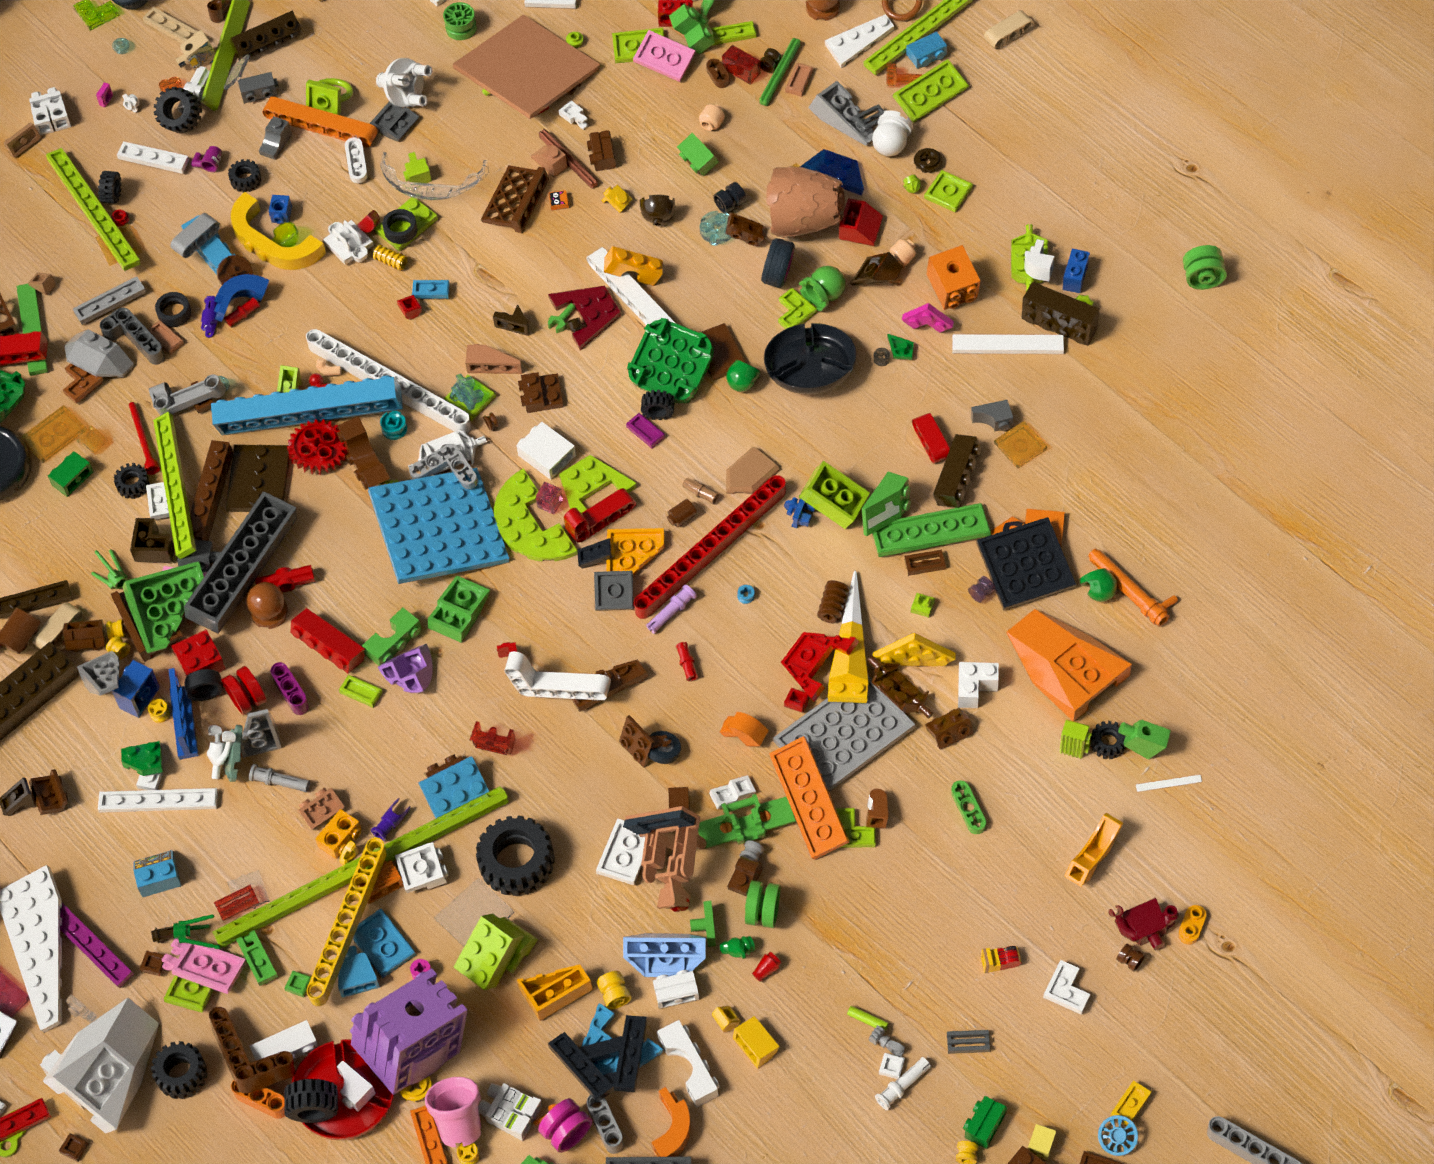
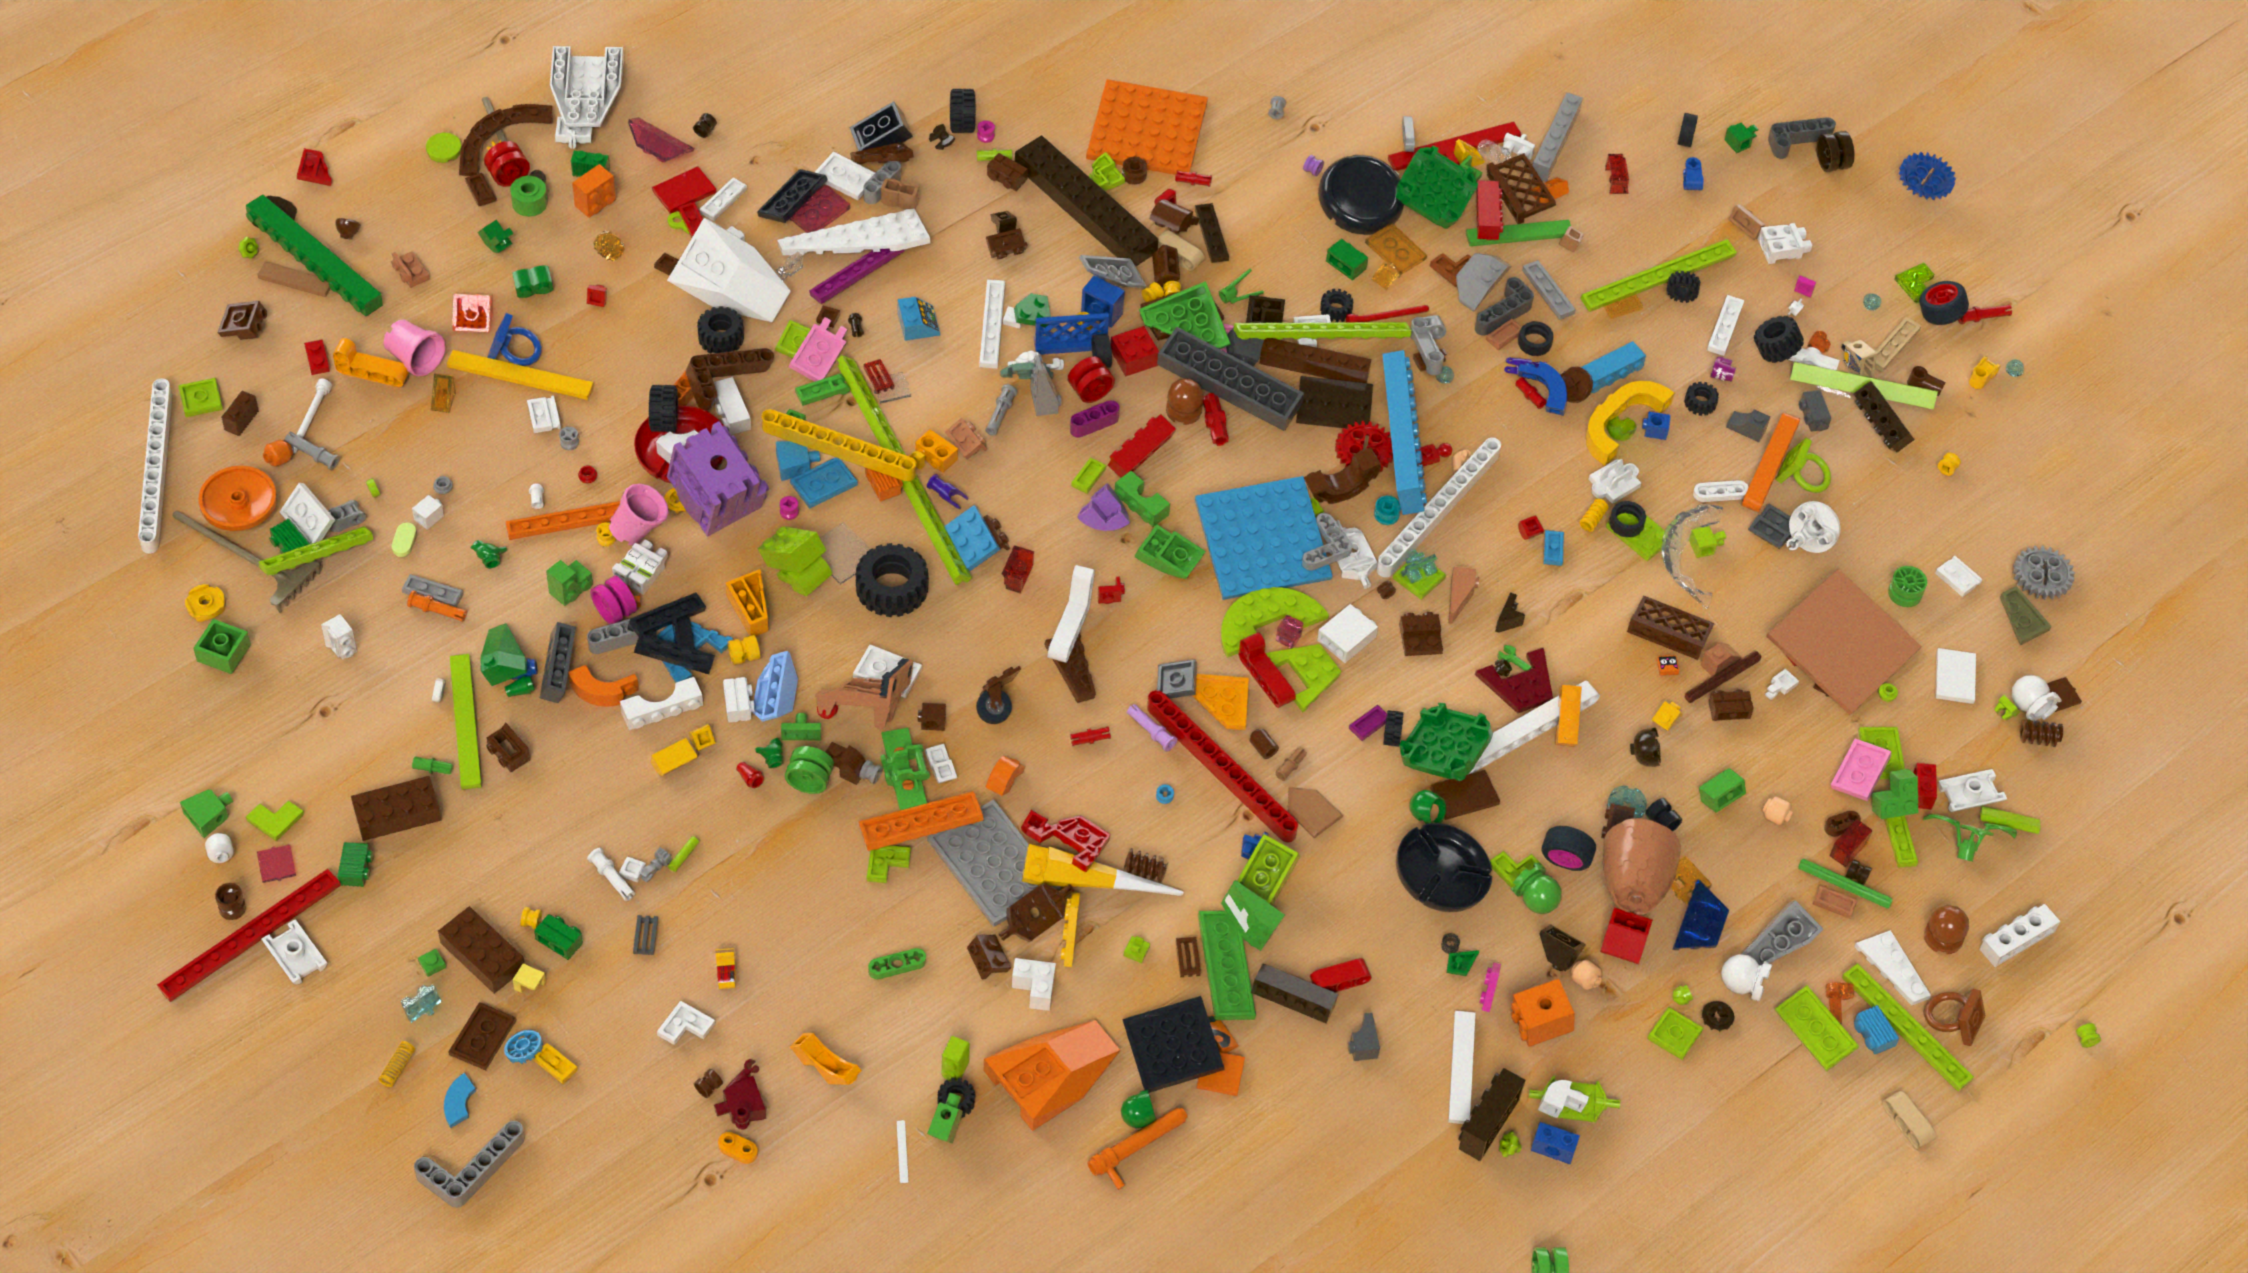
camera: 85 degrees right, 5 degrees down
(120, 217) = (1650, 299): red plate -> none
(182, 930) = (852, 332): green plant -> none
(195, 235) = (1615, 348): light grey beam -> none
(288, 378) = (1437, 424): lime slope -> none
(369, 222) = (1636, 495): red brick -> none
(422, 867) = (891, 511): white plate -> none
(595, 553) = (1221, 666): black plate -> none
(861, 123) = (1773, 973): dark grey tile -> none
(878, 813) = (901, 880): dark orange leg -> none
(981, 589) = (1146, 1000): wheel -> none
(1020, 444) = (1328, 1063): clear yellow tile -> none

